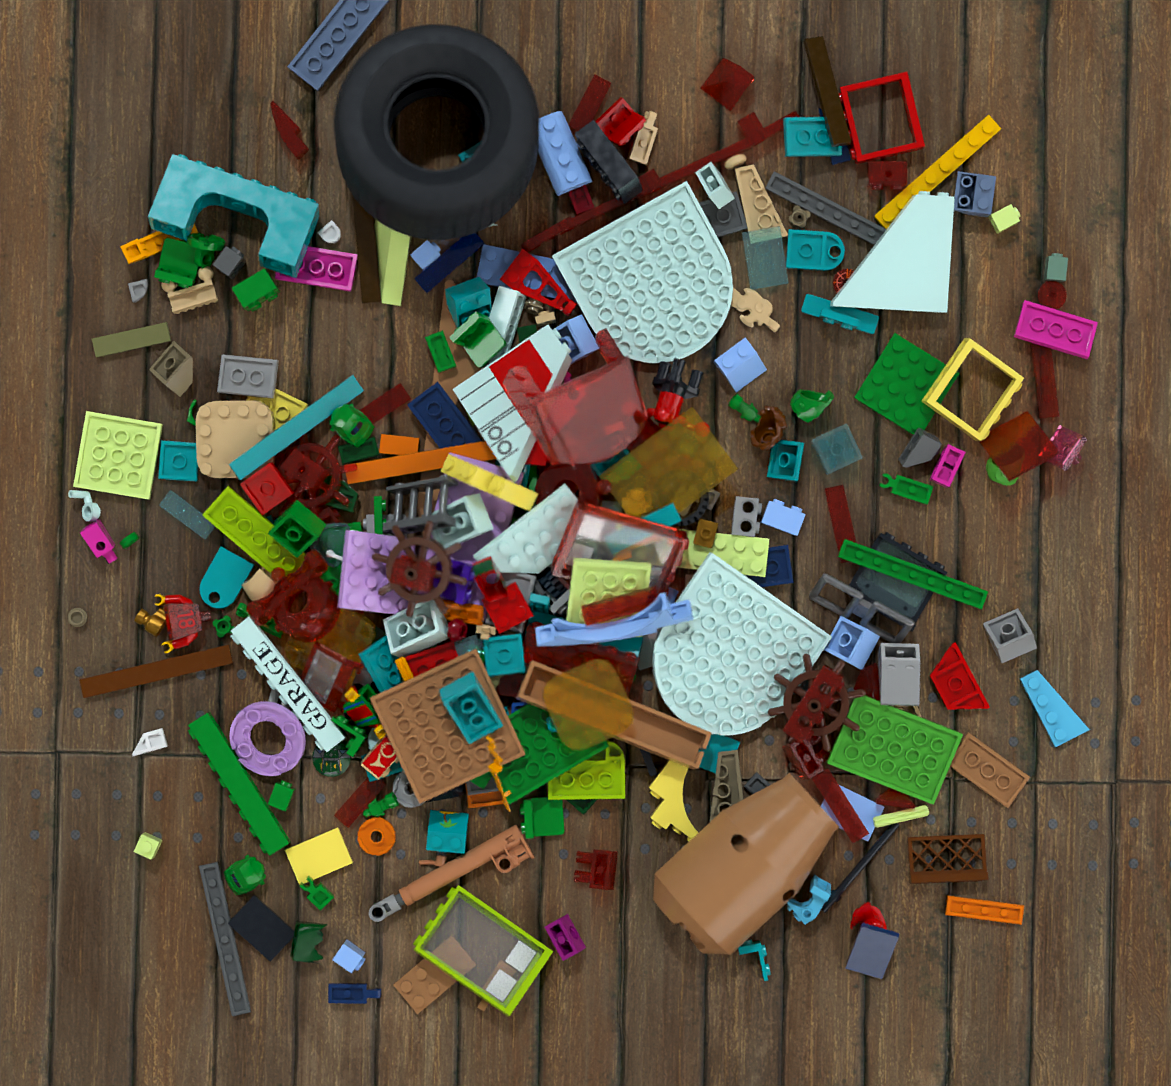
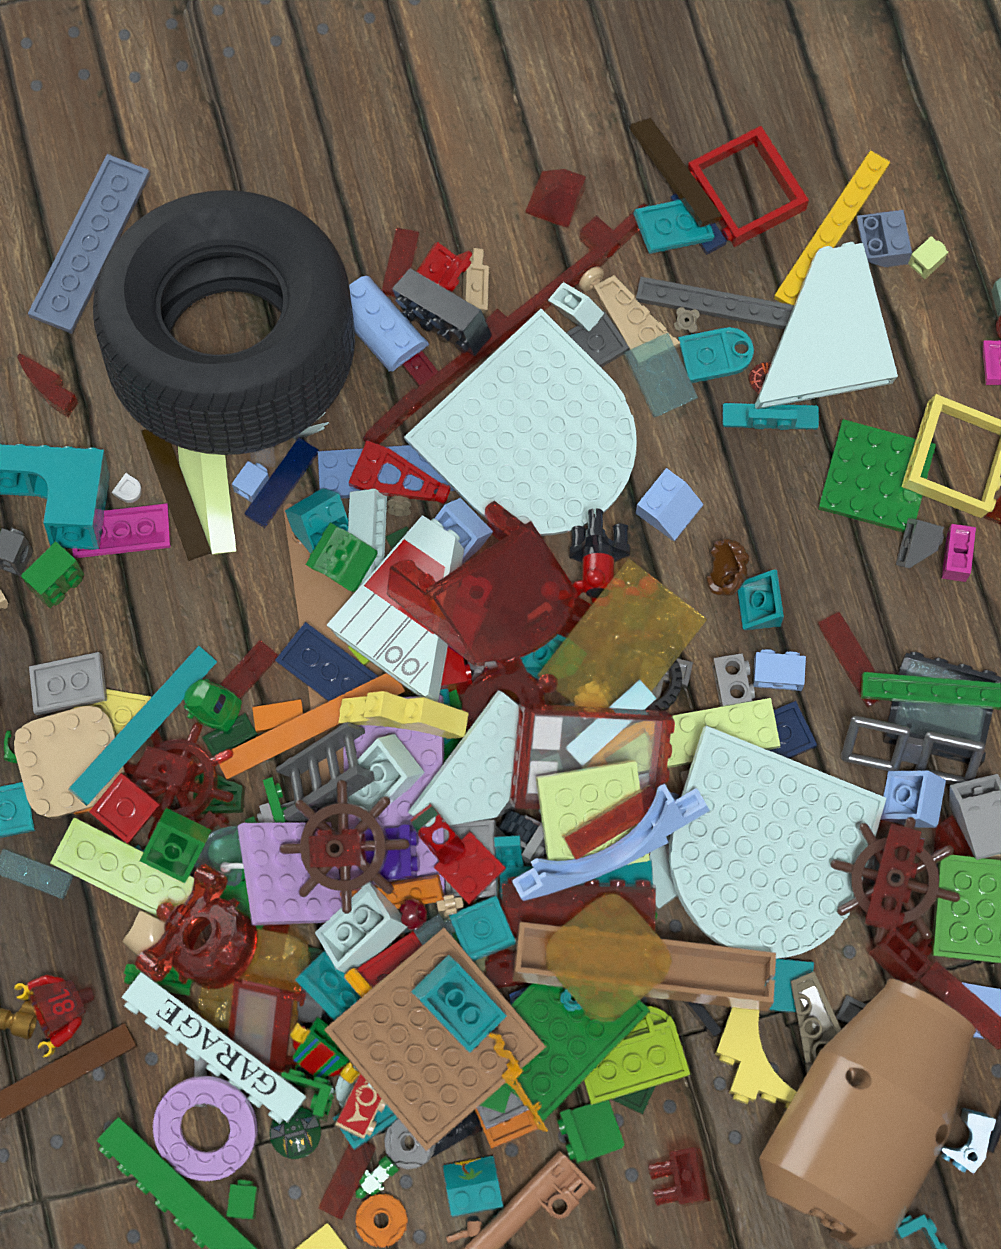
camera: 15 degrees left, 15 degrees down
(151, 741) = (53, 1180): white tile -> none
(218, 625) = (105, 1001): green plate -> none
(225, 577) = (99, 940): teal tile -> none
(440, 351) = (299, 588): green plate -> none
(545, 318) = (415, 513): tan plate -> none
(705, 533) = (689, 712): pearl gold bracket -> none
(747, 411) = (697, 558): green piece -> none
(759, 308) = (671, 435): tan piece -> none
(810, 404) = (769, 528): green helmet -> none
(836, 449) = (818, 570): clear light blue brick -> none
(886, 174) = (774, 245): clear red brick -> none
(908, 488) = (919, 594): green plate -> none

